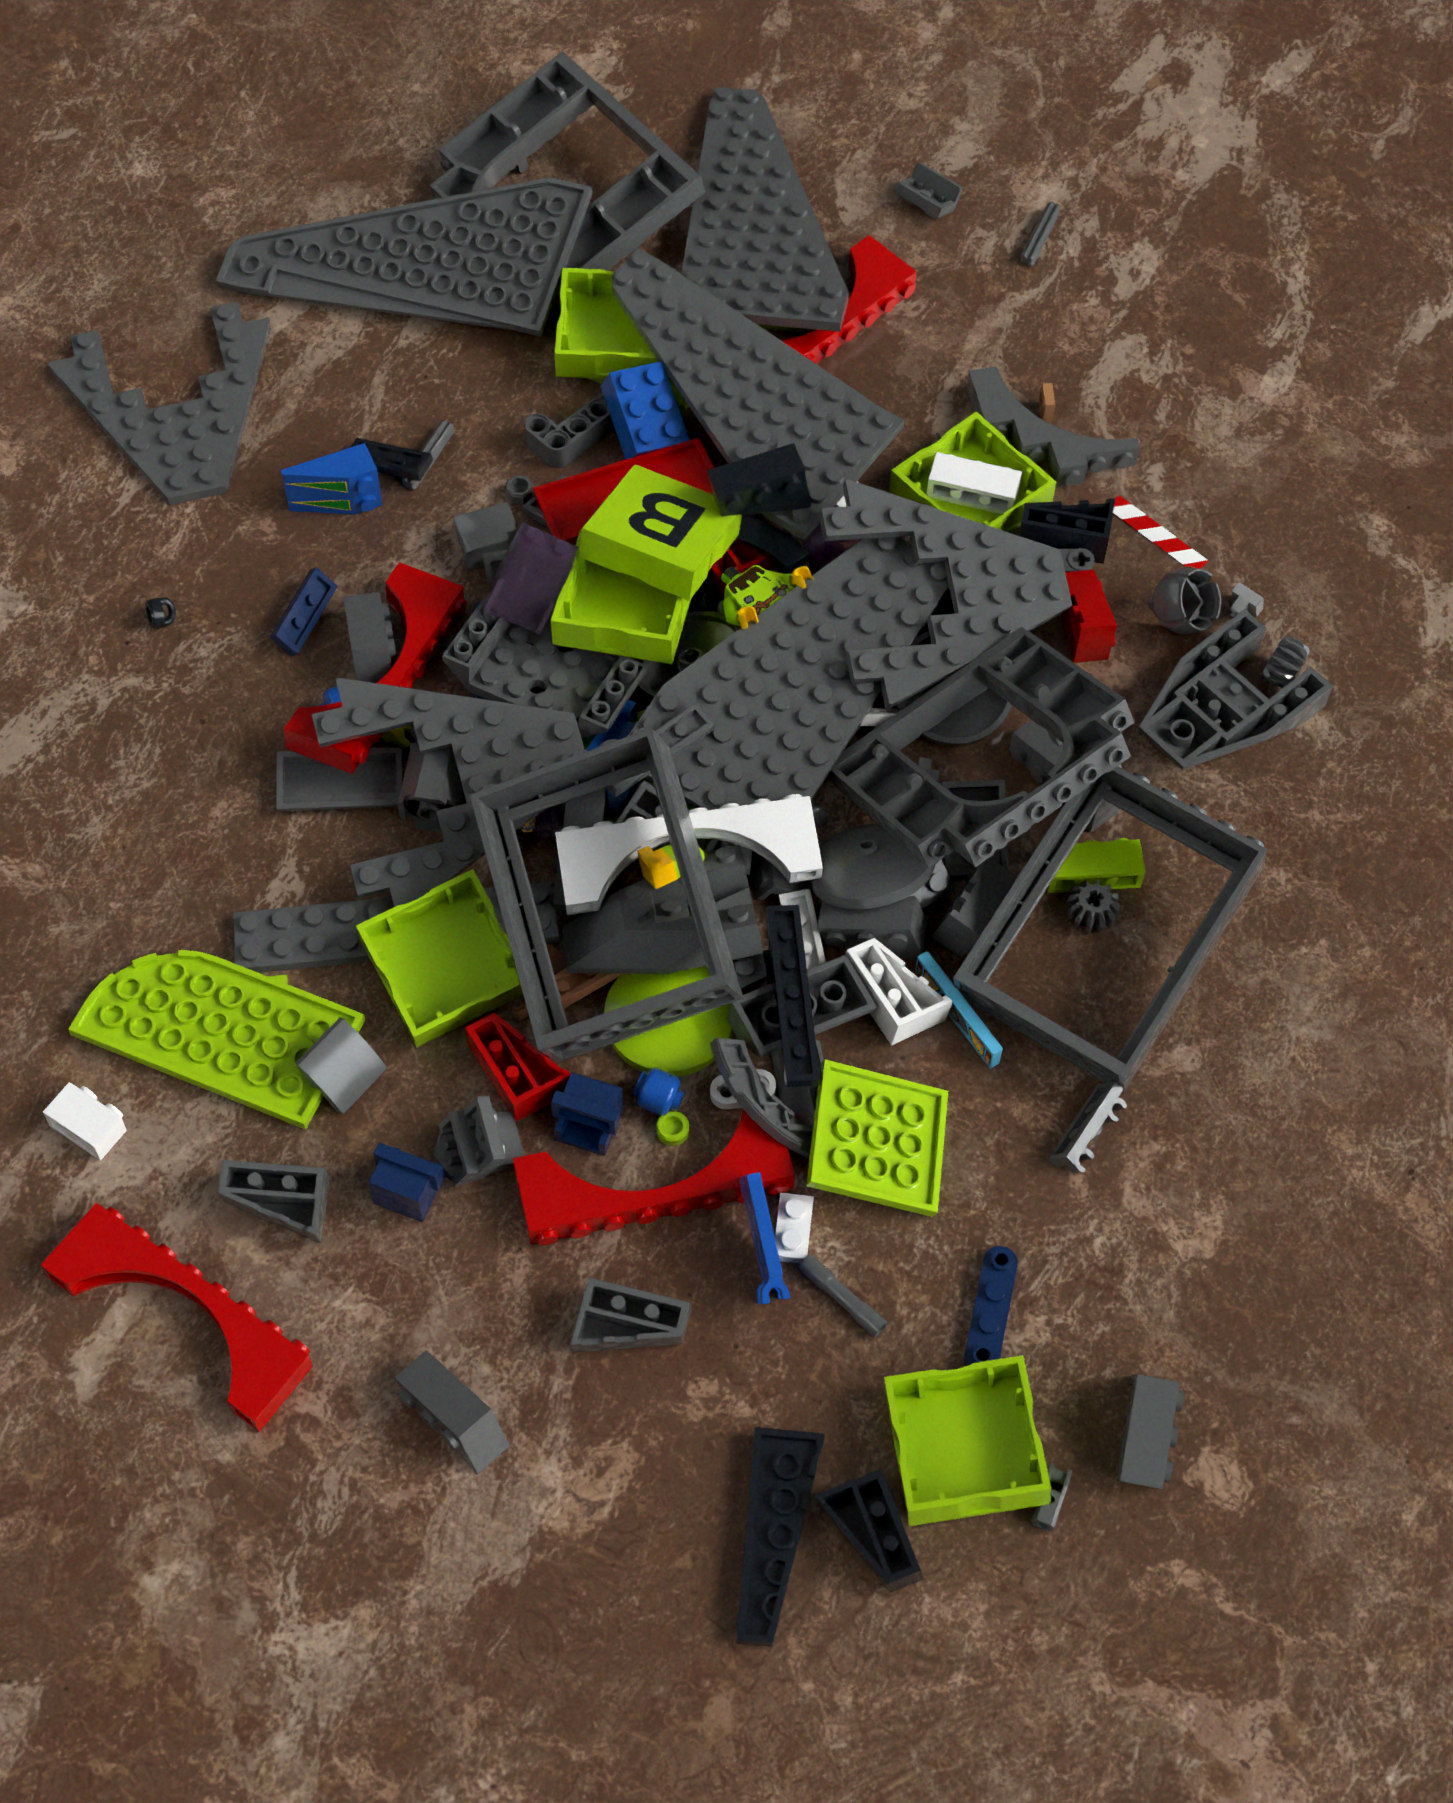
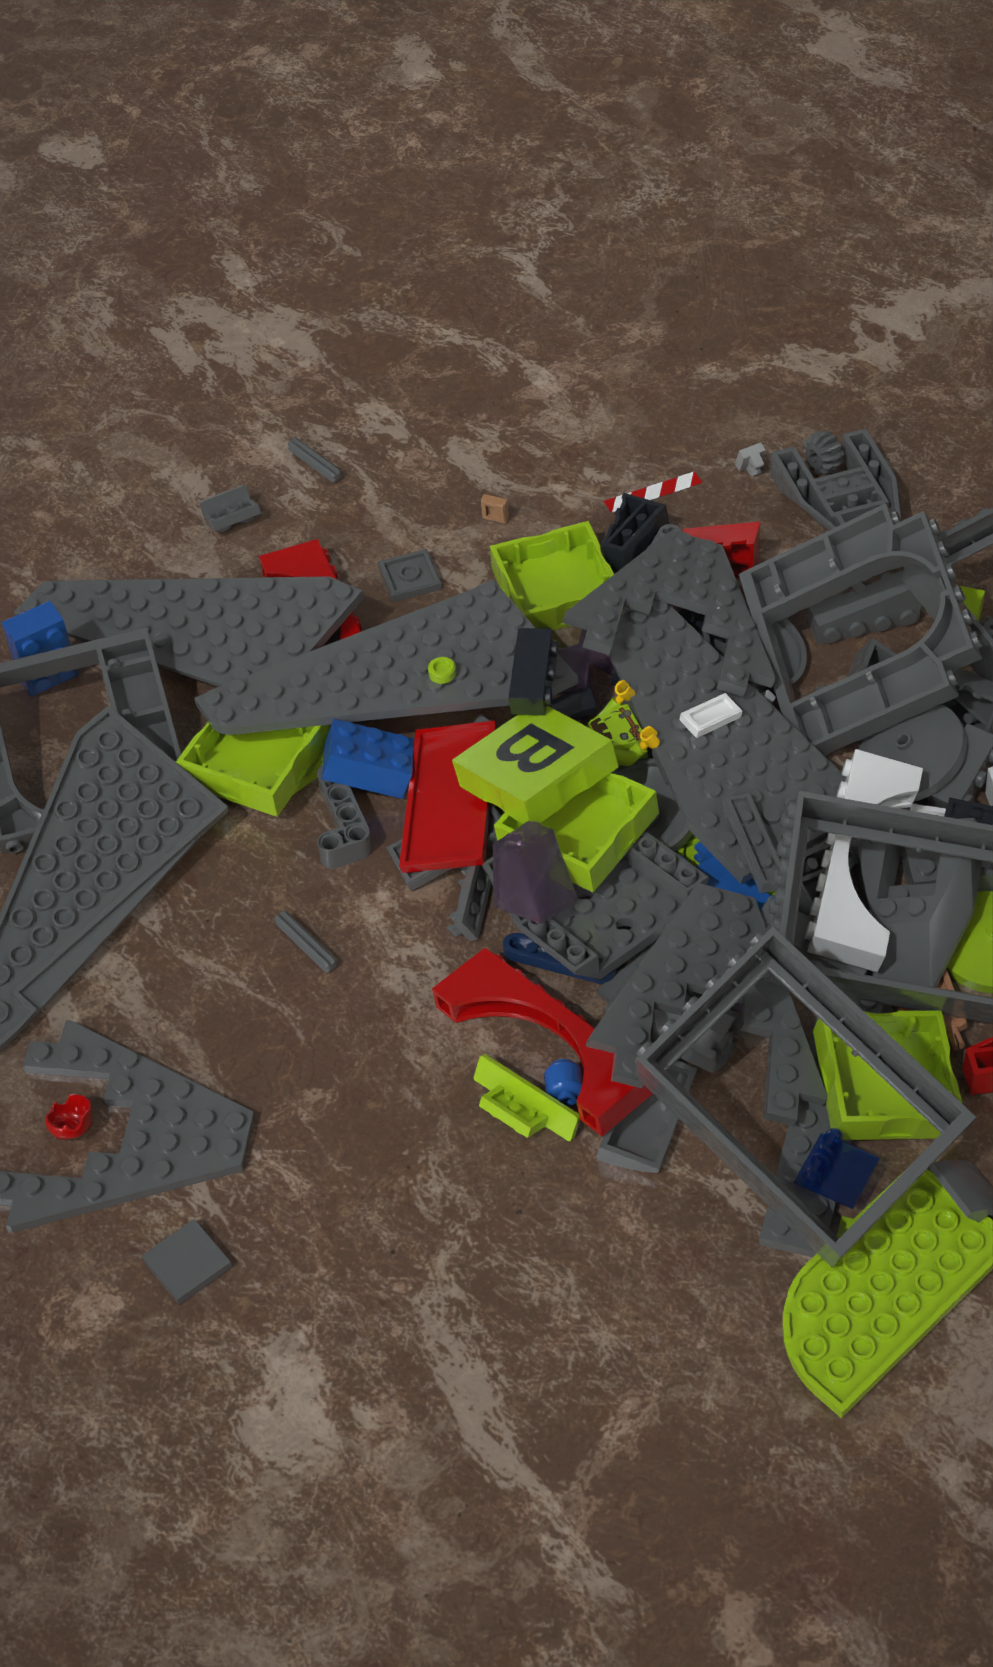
camera: 60 degrees left, 10 degrees down
(61, 499) = (186, 1261): none -> dark grey tile
(85, 1120) = (949, 1425): white brick -> none
(155, 612) = (378, 1209): black tile -> none
(165, 359) = (71, 1118): none -> red hair
(267, 831) = (850, 1023): none -> dark grey door
(303, 611) = (440, 1087): dark blue plate -> none
(306, 671) = (521, 1102): none -> lime bracket
(320, 948) = (836, 1169): none -> clear blue hinge
(334, 483) = (315, 1009): blue slope -> none
(370, 636) = (507, 1037): dark grey wedge -> none
(397, 460) = (297, 970): black tile -> none
(484, 532) = (427, 920): dark grey piece -> none
(519, 489) = (386, 883): dark grey tile -> none
(659, 866) = (866, 871): yellow leg -> none
(661, 107) = (35, 633): none -> blue brick
(752, 418) = (442, 670): none -> lime tile
(806, 661) = (710, 715): none -> white tile
(923, 369) = (409, 575): none -> dark grey tile
(973, 483) = (555, 574): white brick -> none
(1067, 453) = (555, 510): dark grey arch -> none
(1186, 601) = (741, 487): dark grey piece -> none

